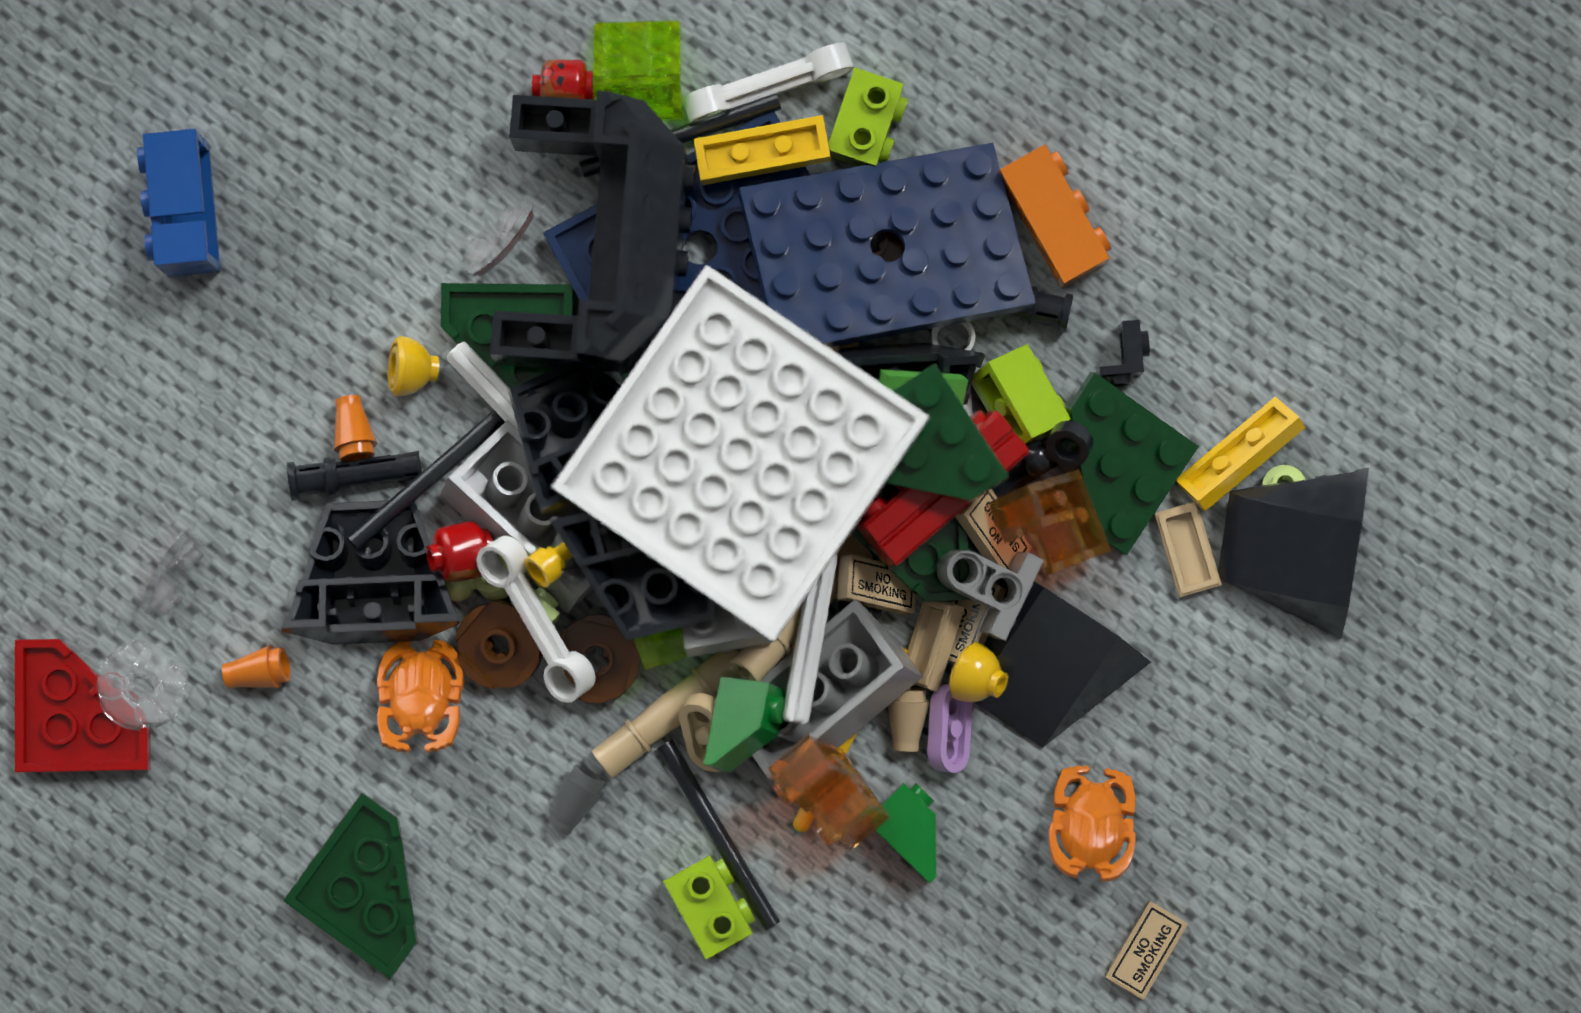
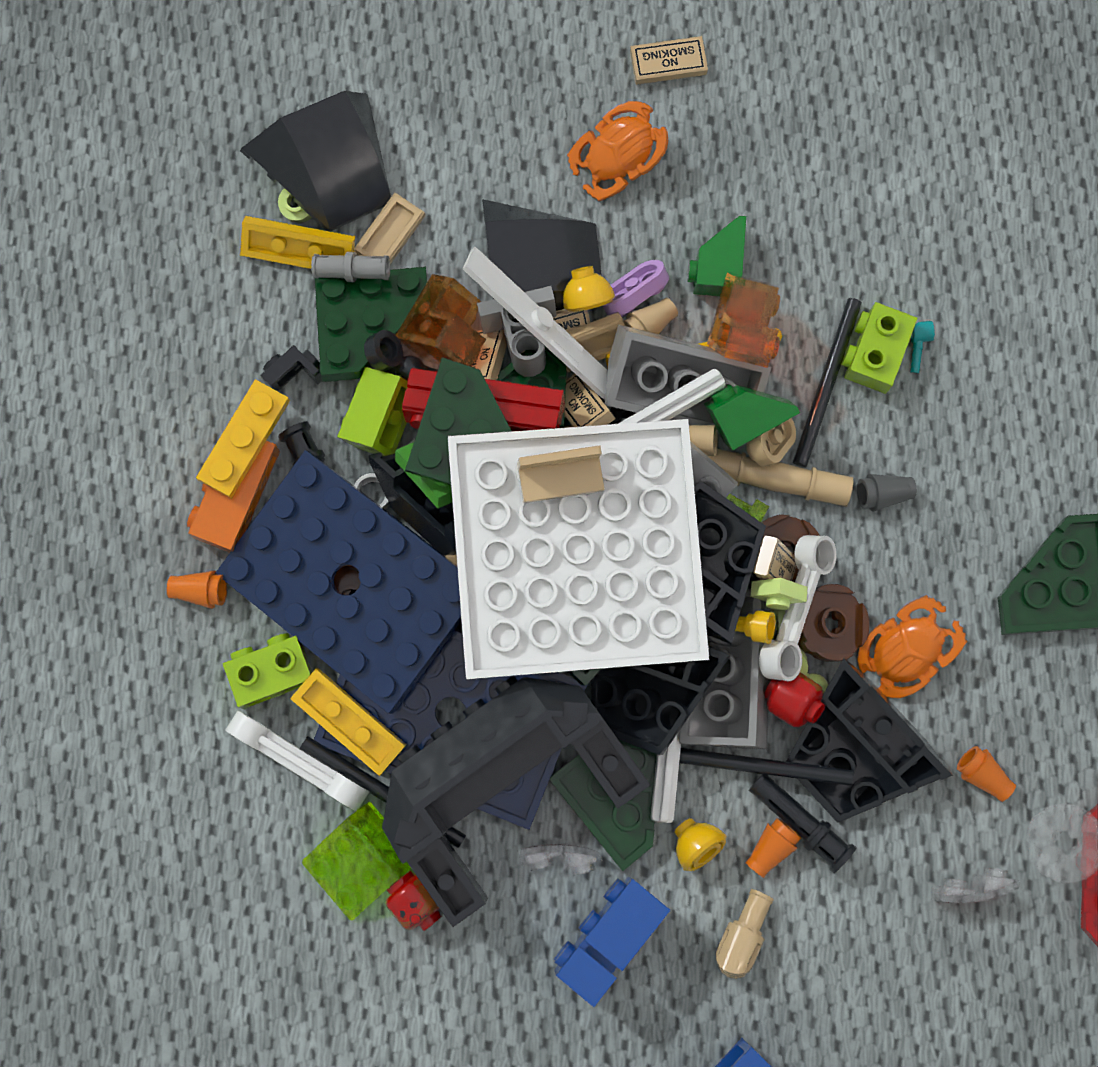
camera: 135 degrees left, 5 degrees down
(299, 339) = (743, 937): none -> tan arm
(394, 221) = (609, 939): none -> blue piece
(559, 605) = (779, 593): none -> yellowish green plate
(588, 627) = (774, 560): none -> tan tile
(692, 959) = (921, 333): none -> teal hand
(812, 484) = (560, 474): none -> tan panel
(980, 596) = (536, 320): none -> white piece
(990, 119) = (199, 588): none -> orange cone
(1090, 257) = (243, 439): none -> yellow plate
(1177, 482) = (350, 266): none -> light grey pin

